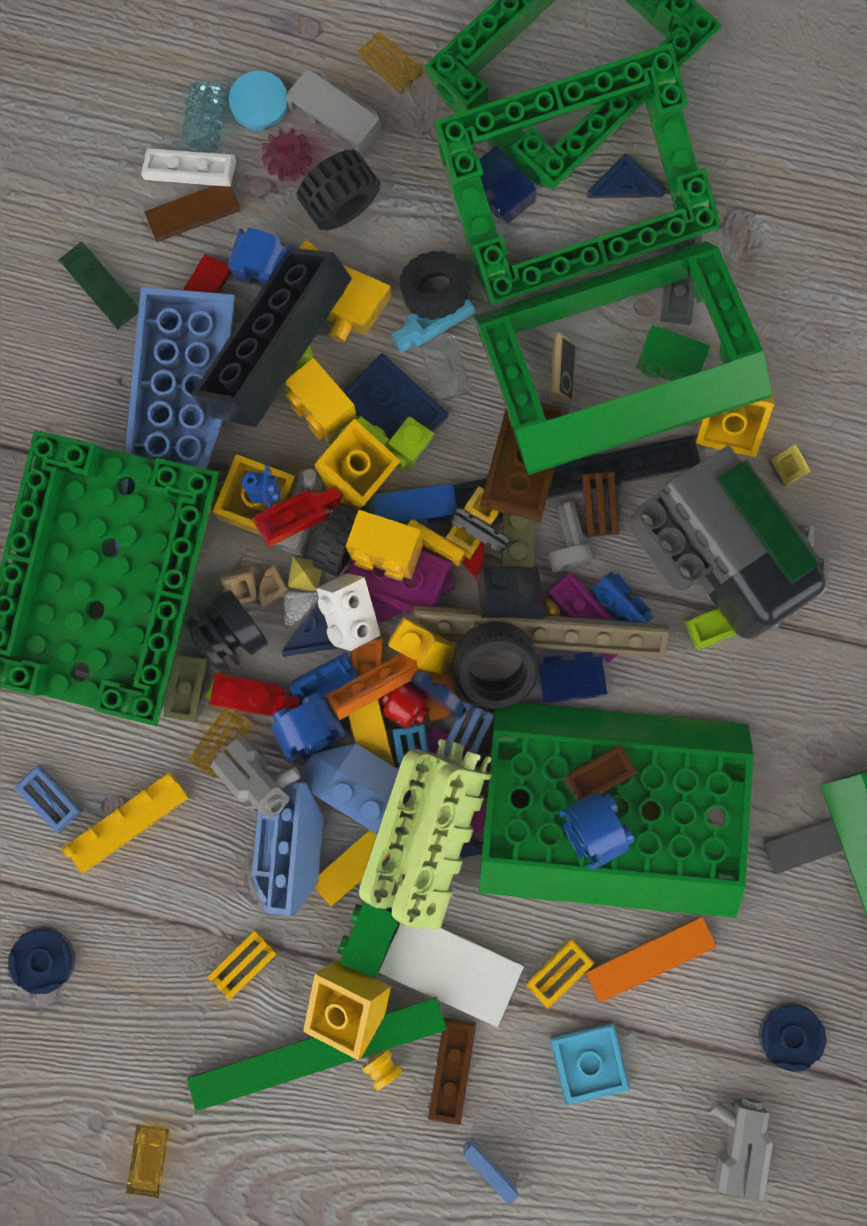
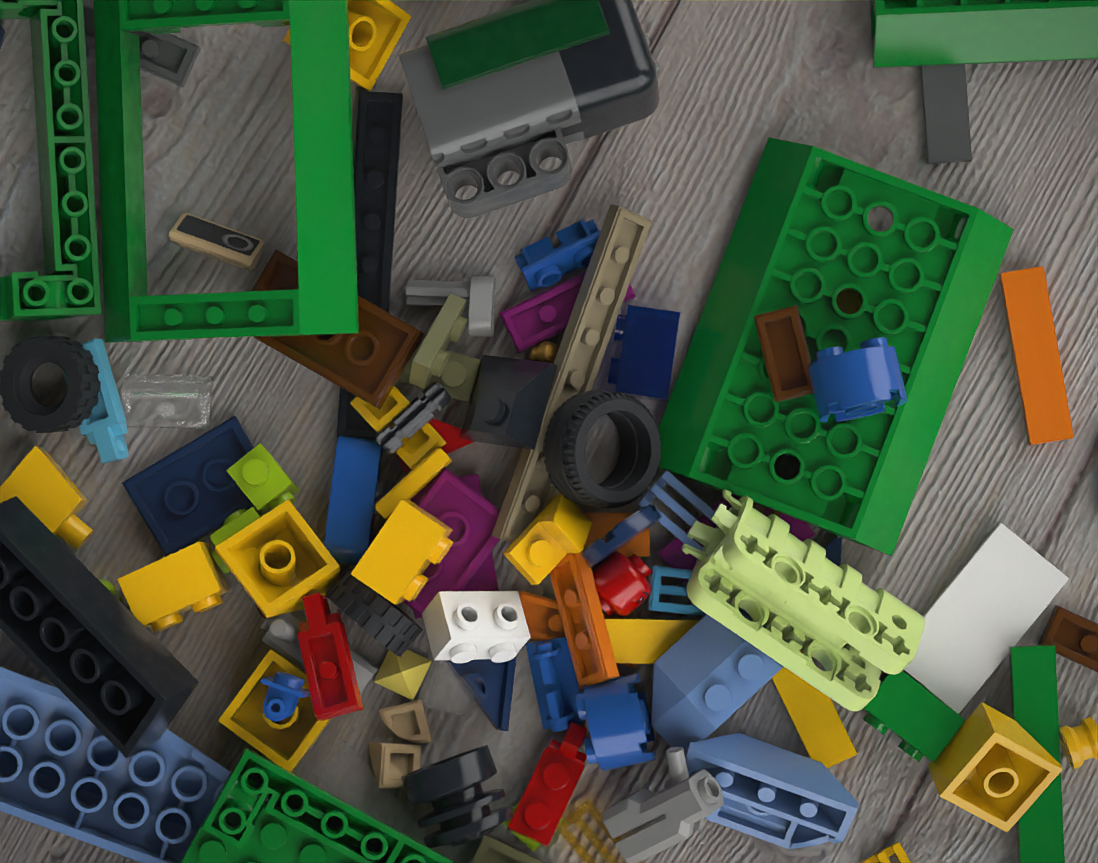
camera: 75 degrees left, 5 degrees up
(528, 530) = (432, 353): none -> olive plate
(539, 992) = (1008, 489): yellow tile -> none
(611, 490) = (455, 252): reddish brown tile -> none
(671, 355) = (244, 88): green brick -> none
(708, 629) = (627, 151): lime tile -> none

